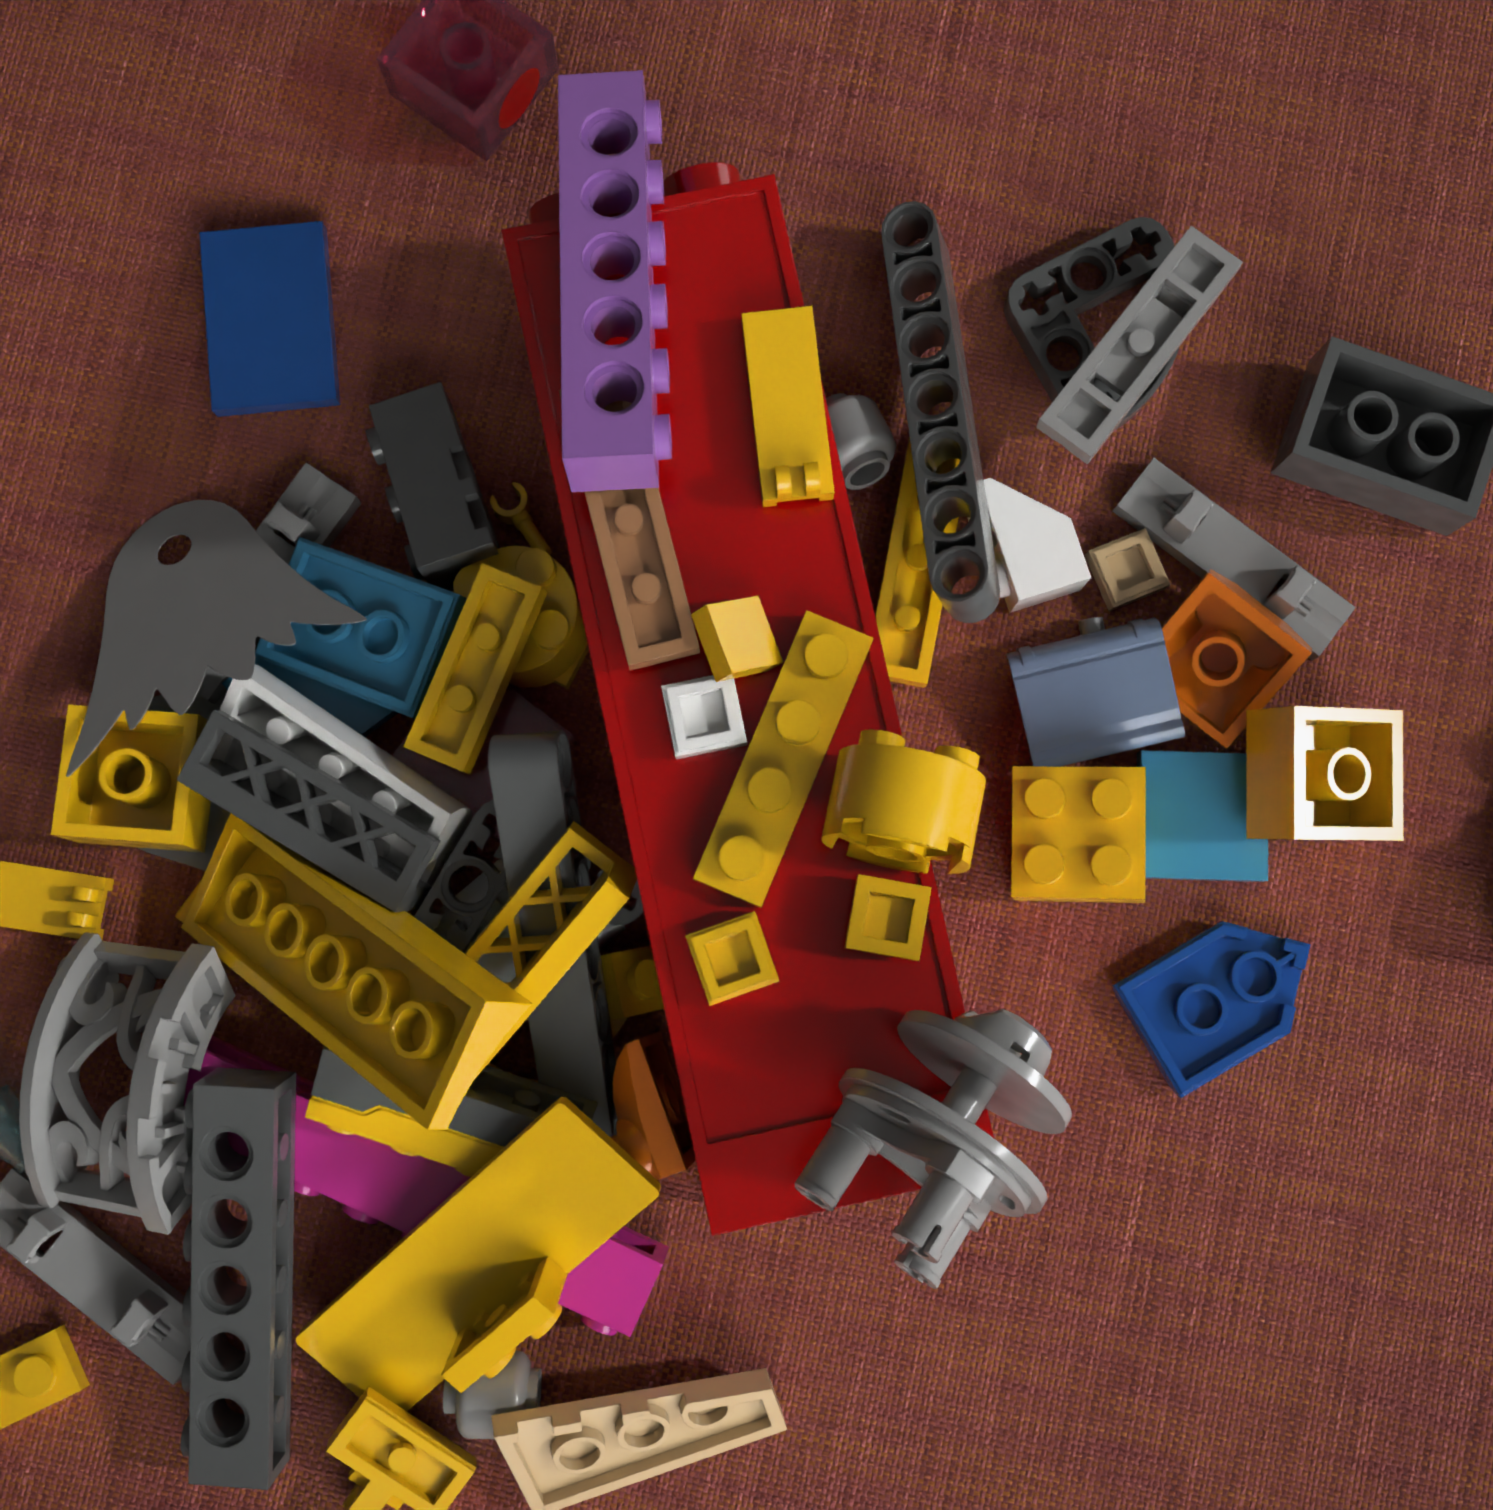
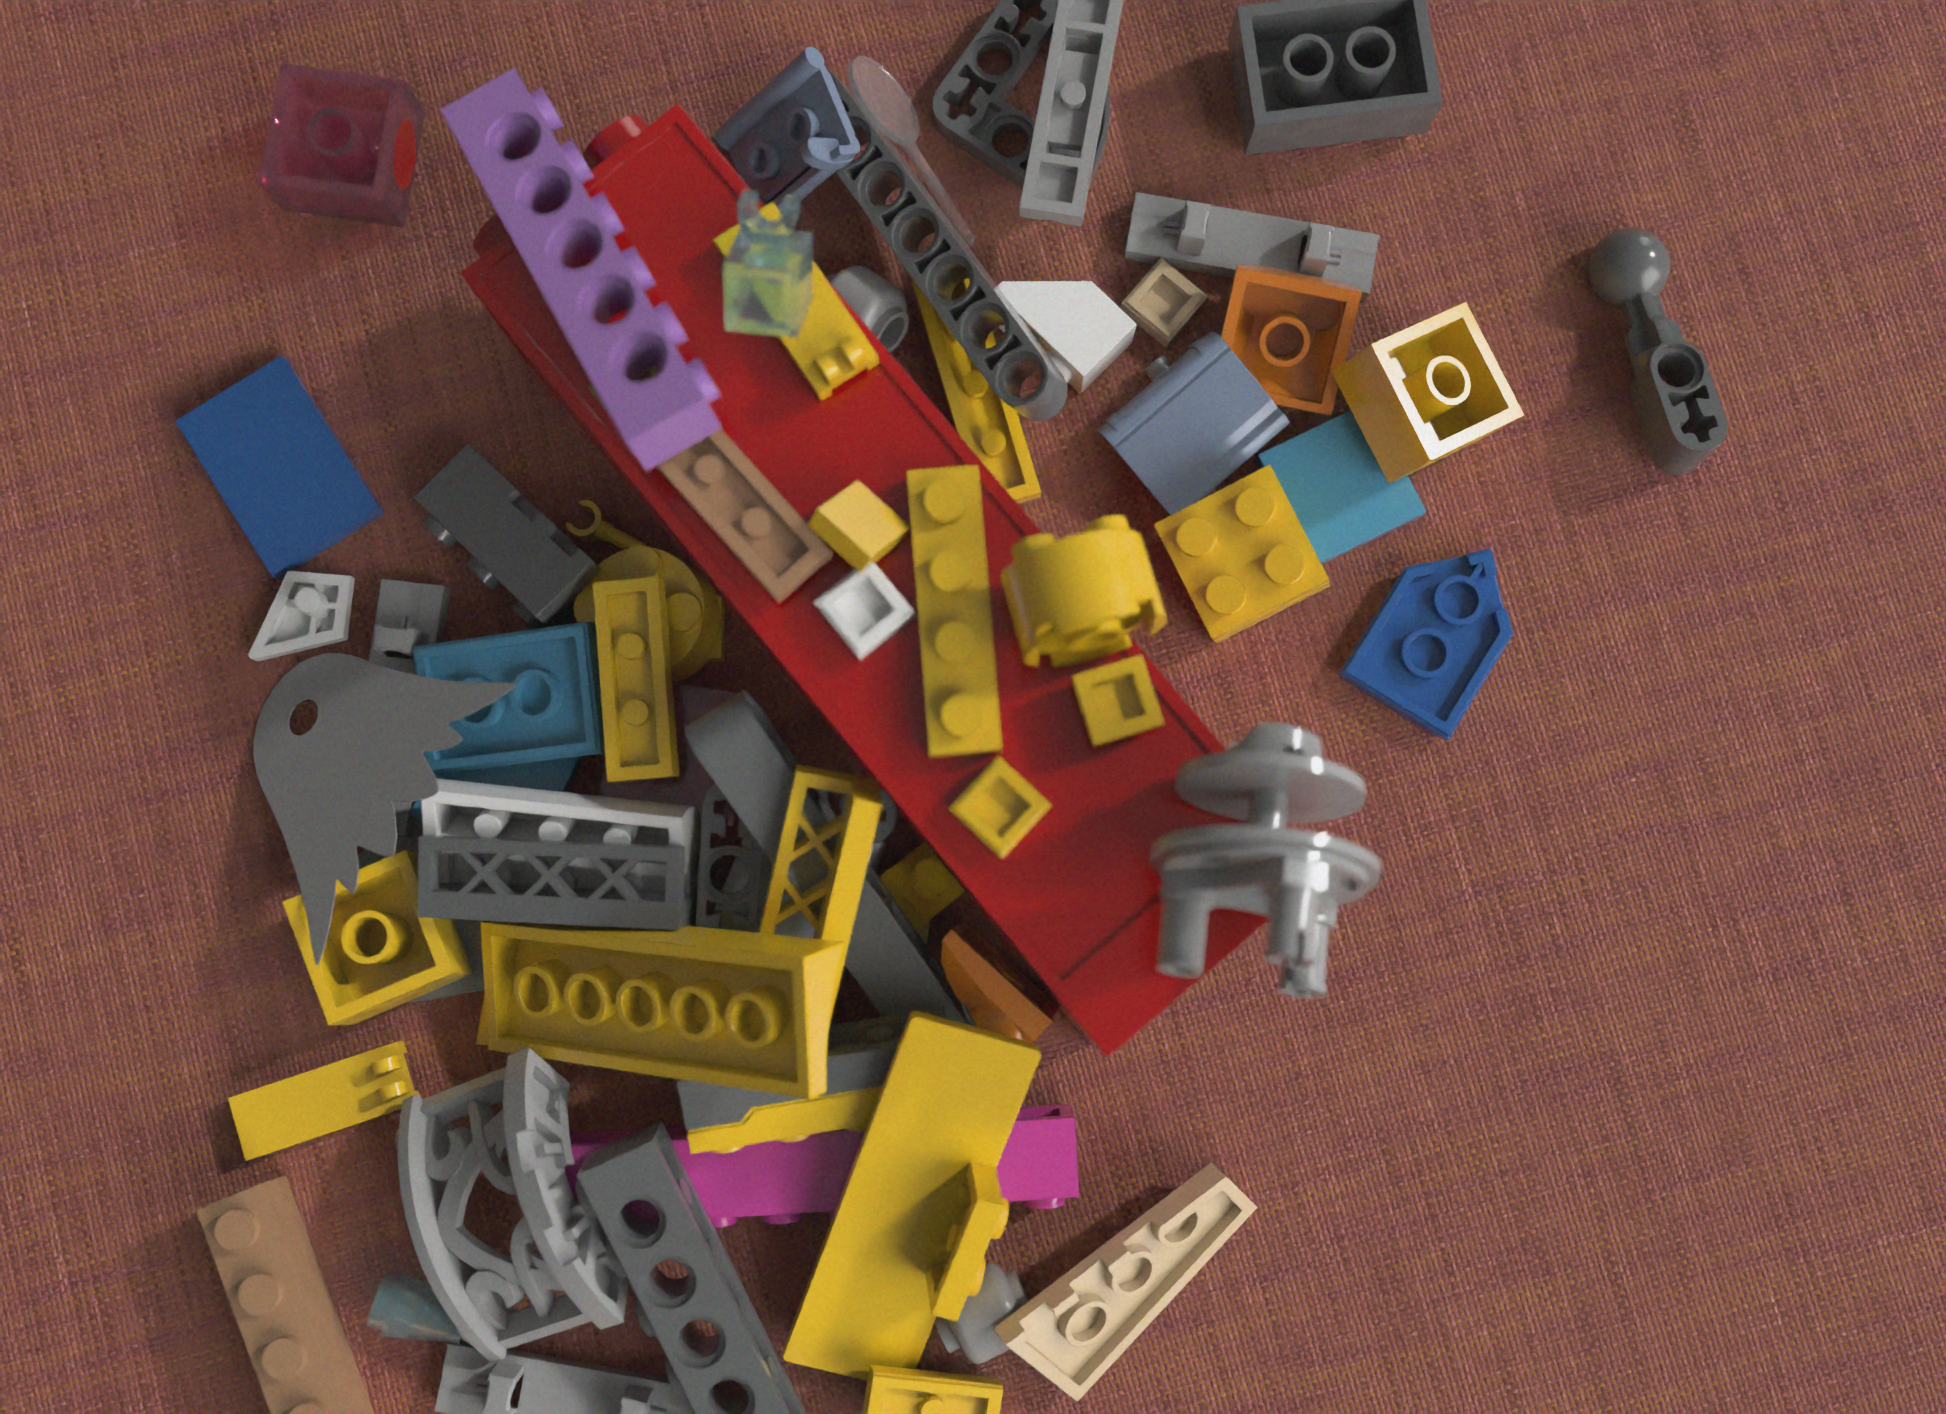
camera: 25 degrees left, 0 degrees up
(223, 460) = (305, 615): none -> white piece
(772, 368) = (768, 271): none -> clear light blue brick
(867, 251) = (791, 132): none -> sand blue piece
(971, 281) = (895, 117): none -> clear piece

